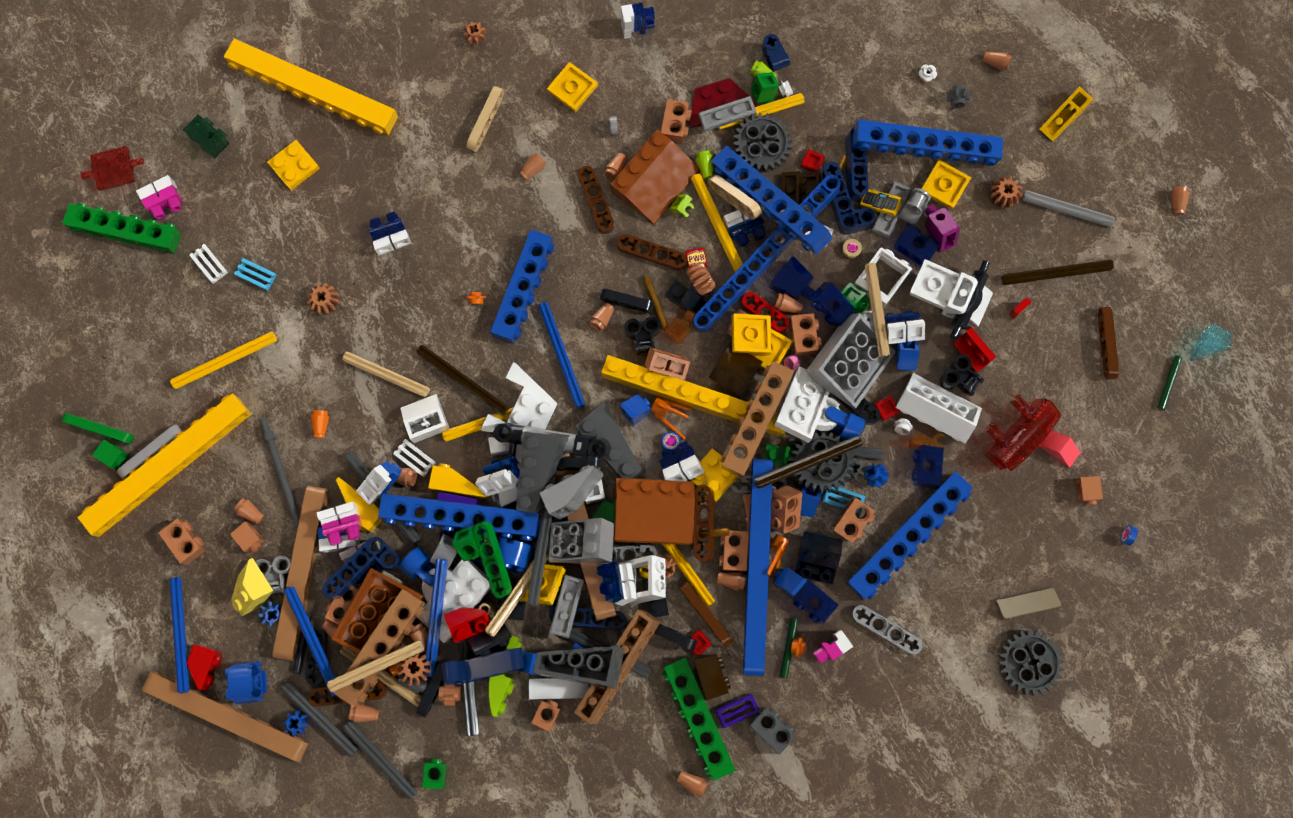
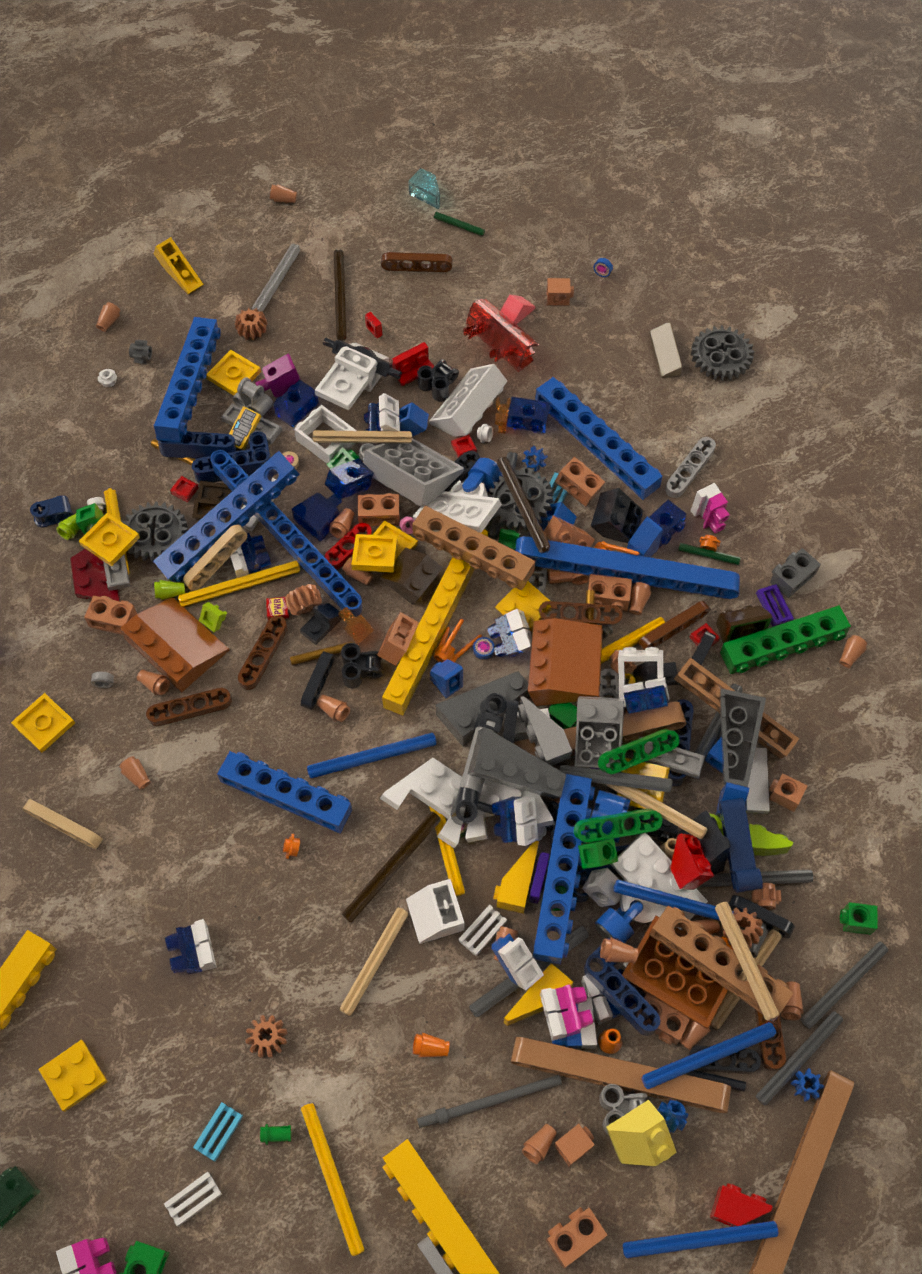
camera: 90 degrees left, 15 degrees down
(246, 682) = (761, 1144): blue brick -> none
(253, 315) = (275, 1134): none -> green pin
(331, 565) = (607, 1045): none -> orange cone
(381, 561) = (617, 951): none -> nougat cone
(559, 577) = (638, 750): none -> green beam
(742, 104) = (109, 539): none -> yellow plate

